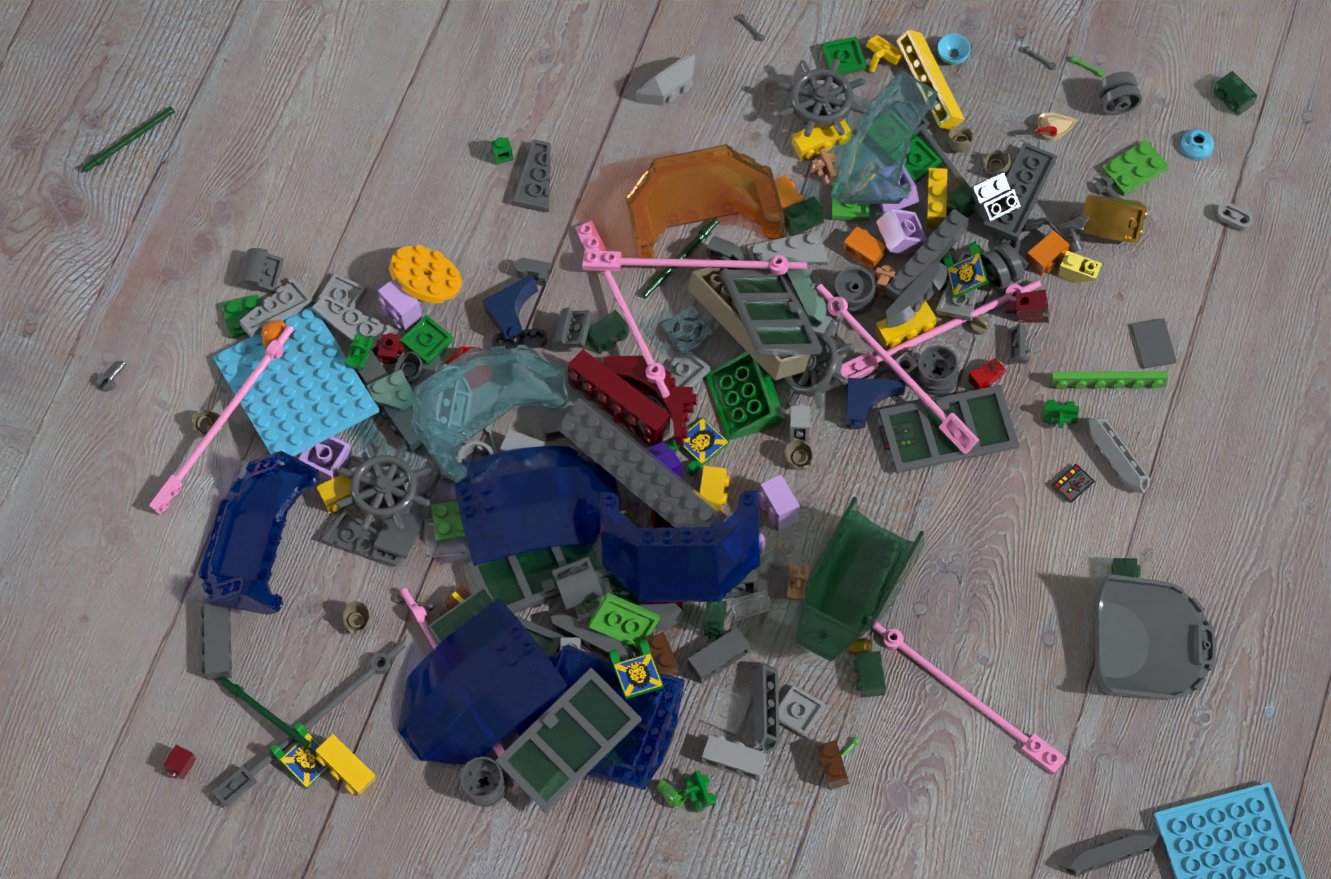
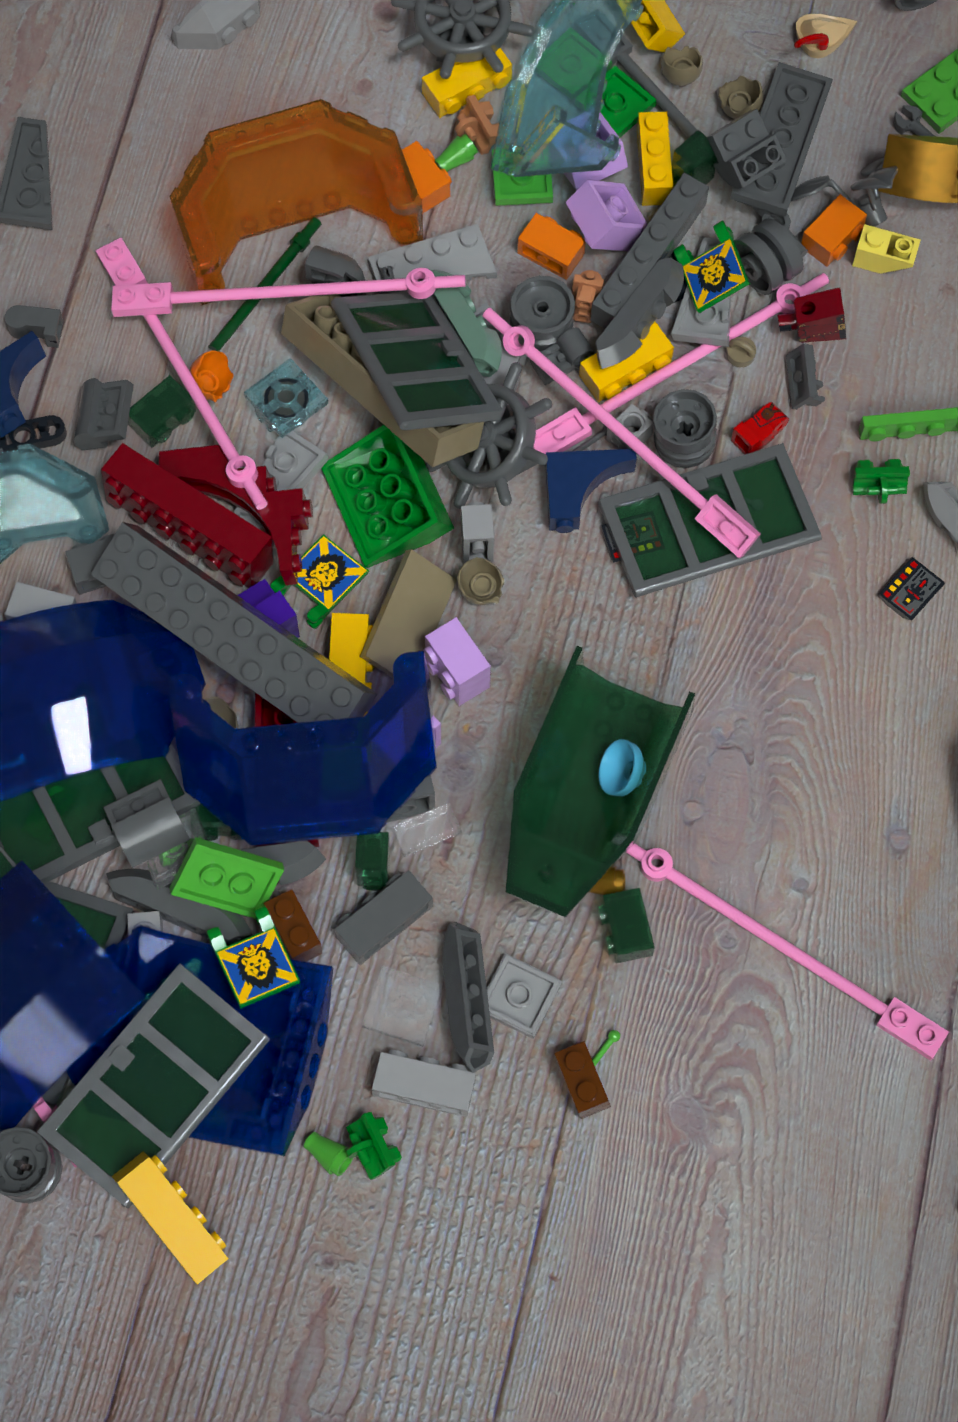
camera: 10 degrees left, 5 degrees up
(571, 820) = (170, 1217): none -> yellow brick
(642, 311) = (212, 374): none -> orange hair
(752, 468) = (408, 612): none -> dark tan tile
(797, 581) = (497, 787): nougat hips -> none
(803, 216) = (451, 203): clear green brick -> none
(810, 184) = (457, 153): none -> bright green cone
(867, 317) = (566, 353): none -> dark grey plate
(876, 577) = (617, 765): none -> medium azure piece

